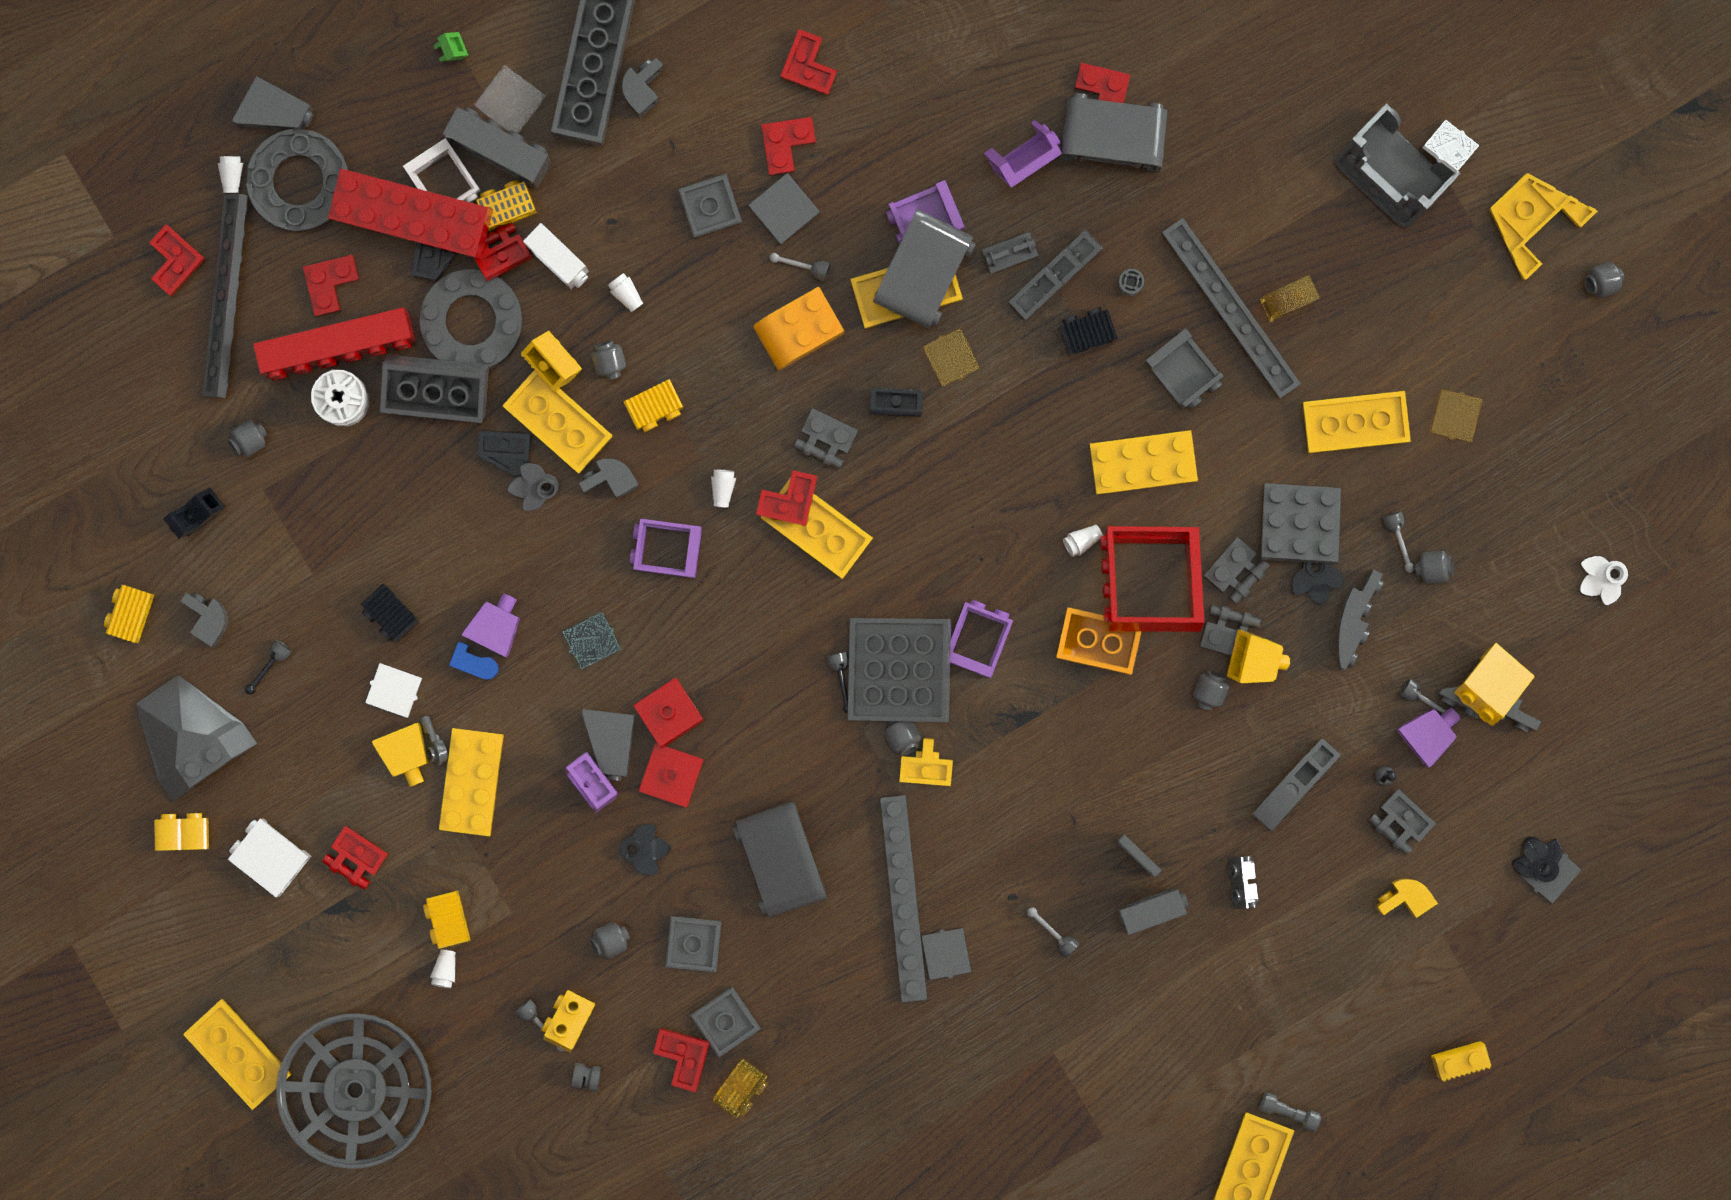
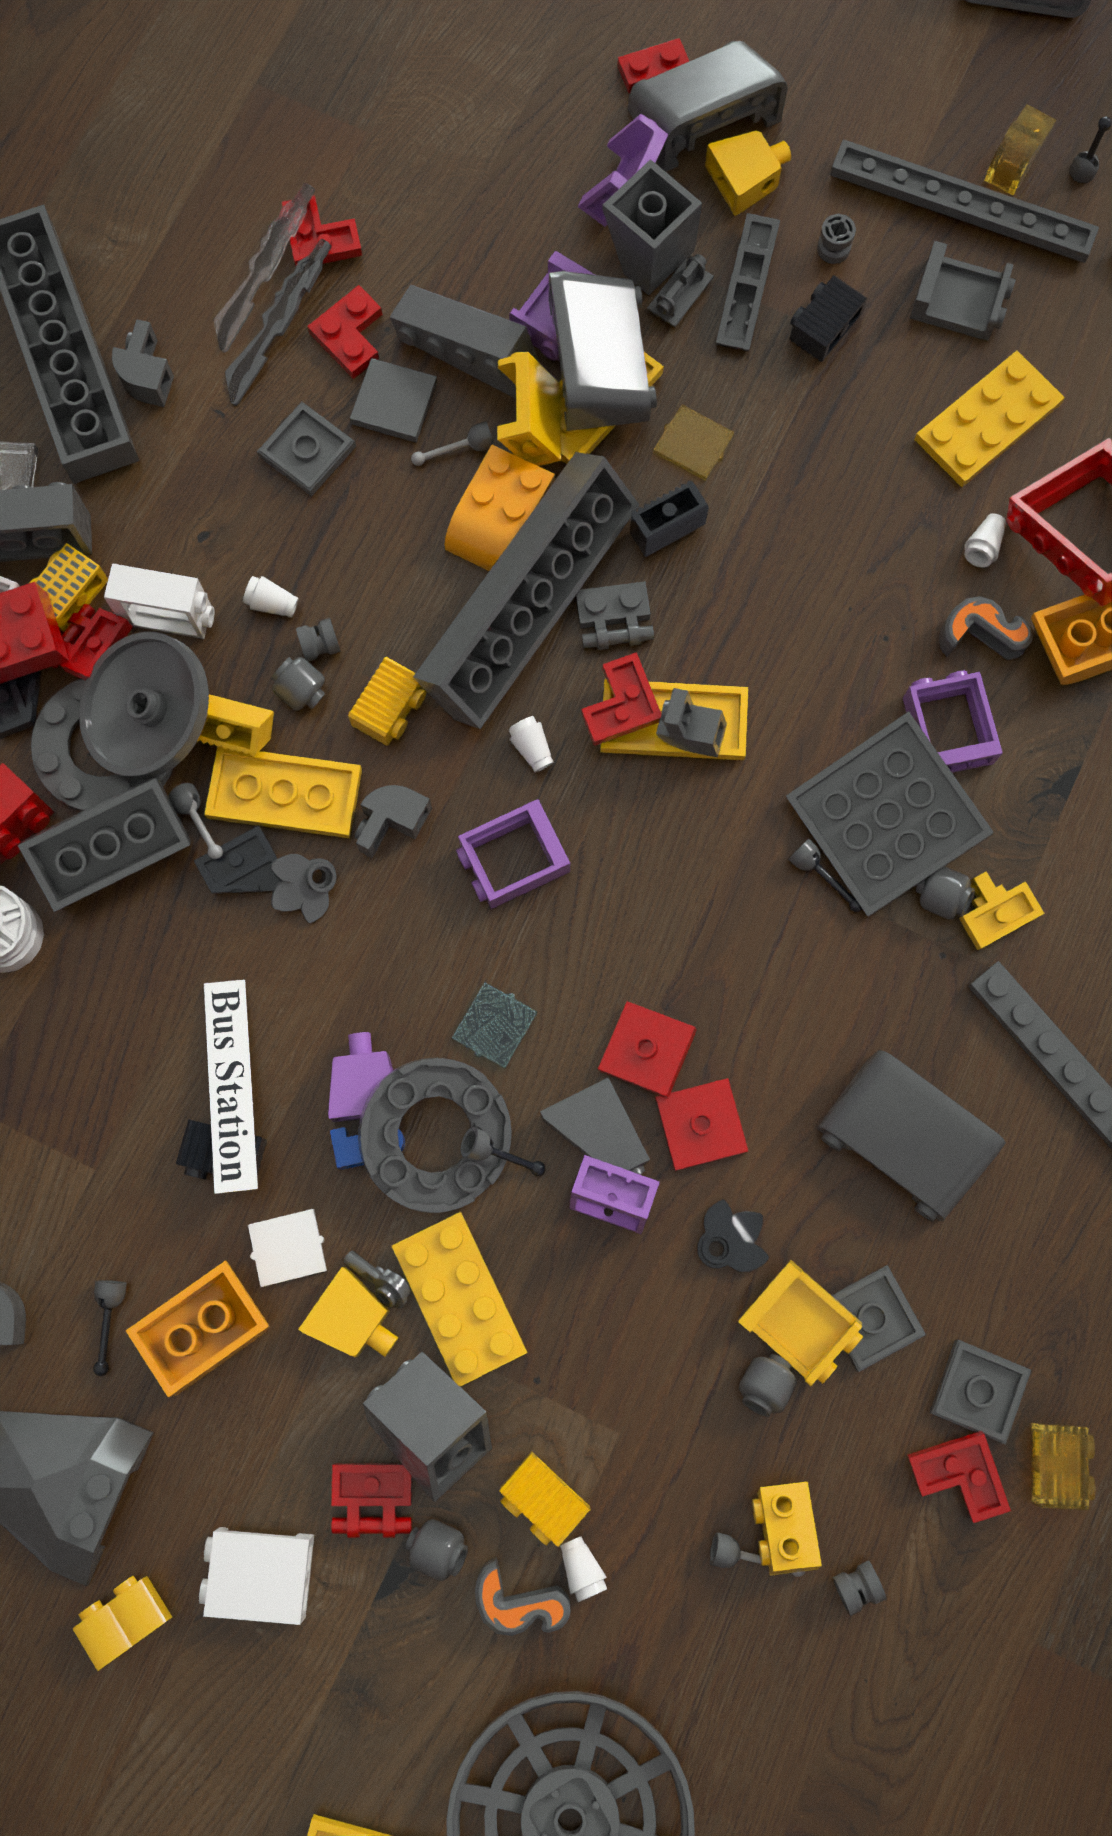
camera: 30 degrees left, 10 degrees down
(317, 705) = (198, 1329): none -> light orange brick
(373, 907) = (436, 1550): none -> dark grey head
(395, 968) = (517, 1612): none -> dark grey animal
(410, 839) = (429, 1424): none -> dark grey slope
(418, 577) = (230, 1087): none -> white sticker
(496, 389) = (187, 801): none -> hinge
(506, 320) = (144, 705): none -> dark grey dish
(515, 718) = (382, 1117): none -> dark grey plate
(535, 706) = (479, 1146): none -> dark grey hinge
(631, 338) = (318, 639): none -> dark grey wheel
(651, 920) = (803, 1323): none -> yellow panel
(745, 107) = (276, 321): none -> dark grey sword
(759, 65) = (262, 267): none -> clear sword
(780, 394) = (527, 590): none -> dark grey brick
(818, 543) = (691, 726): none -> dark grey brick
(852, 201) = (460, 335): none -> dark grey wedge
(858, 284) = (538, 423): none -> yellow panel
(1010, 207) = (652, 225): none -> dark grey slope
(1044, 590) = (987, 623): none -> dark grey animal
(1108, 197) = (746, 168): none -> yellow torso
(1324, 335) = (1087, 163): none -> hinge

